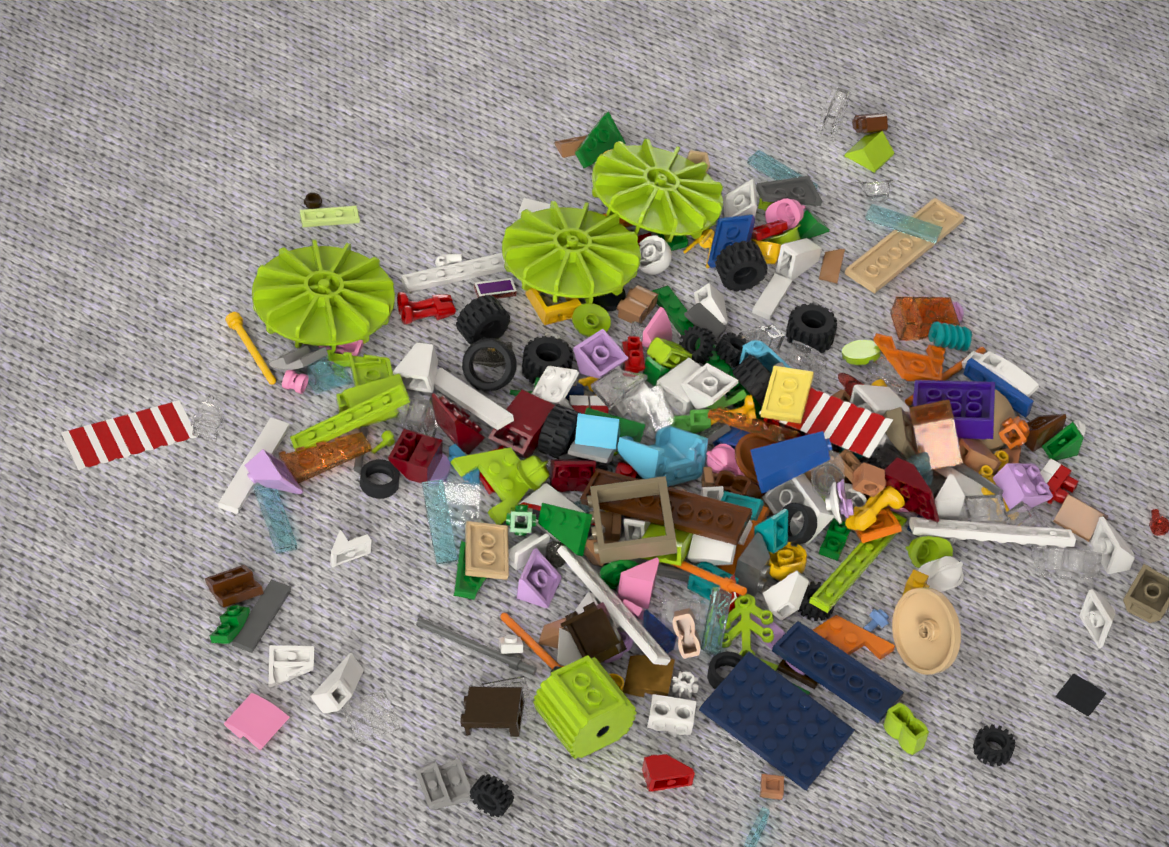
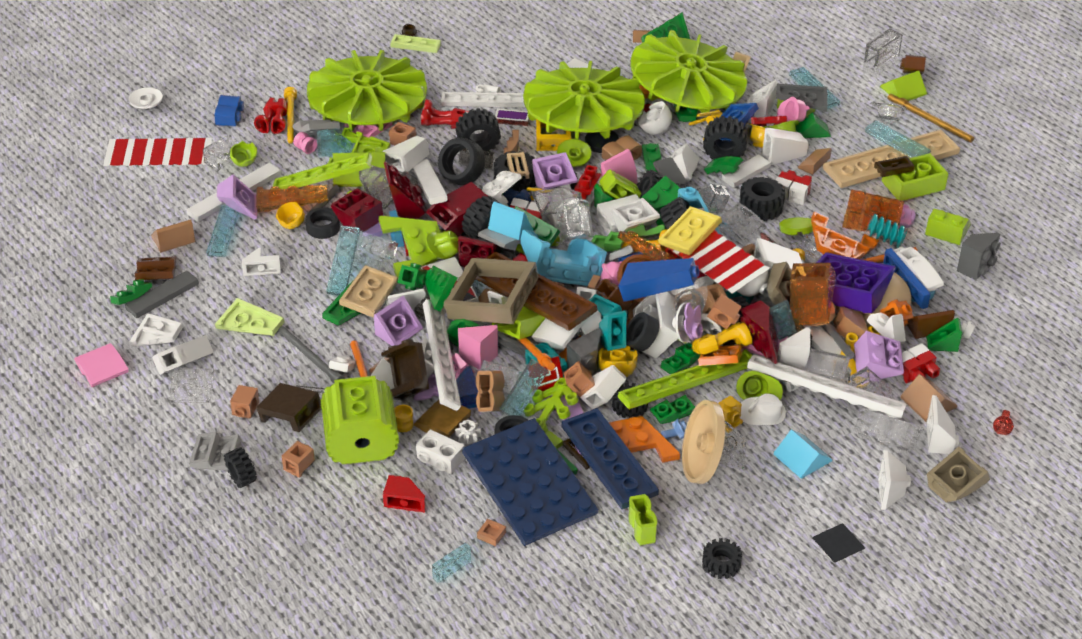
camera: 30 degrees right, 5 degrees down
(72, 368) = (145, 98): none -> white dish
(180, 360) = (228, 110): none -> blue brick
(227, 539) = (174, 236): none -> medium nougat slope
(235, 344) = (274, 109): none -> red piece
(238, 414) = (243, 153): none -> lime hair
(342, 479) = (290, 215): none -> yellow hair
(379, 619) = (250, 319): none -> yellowish green wing
(395, 344) = (401, 133): none -> nougat brick
(440, 718) = (244, 401): none -> nougat brick
(522, 327) = (513, 142): none -> medium nougat slope
(538, 767) = (298, 458): none -> nougat brick
(552, 357) = (509, 159): none -> tan tile
(722, 352) = (662, 193): none -> green wing
(754, 295) = (723, 164): none -> green slope
(764, 593) = (579, 379): none -> nougat brick
(836, 301) = (795, 186): none -> white hips
(860, 599) = (670, 412): none -> green slope
(880, 173) = (931, 118): none -> pearl gold bar
(927, 261) = (894, 166): none -> dark brown tile
(942, 264) = (925, 179): none -> lime brick
(1000, 315) = (947, 226): none -> lime slope
(1001, 613) = (801, 454): none -> medium azure slope
(1017, 453) = (888, 327): none -> white slope
(1049, 342) = (978, 254): none -> dark grey slope

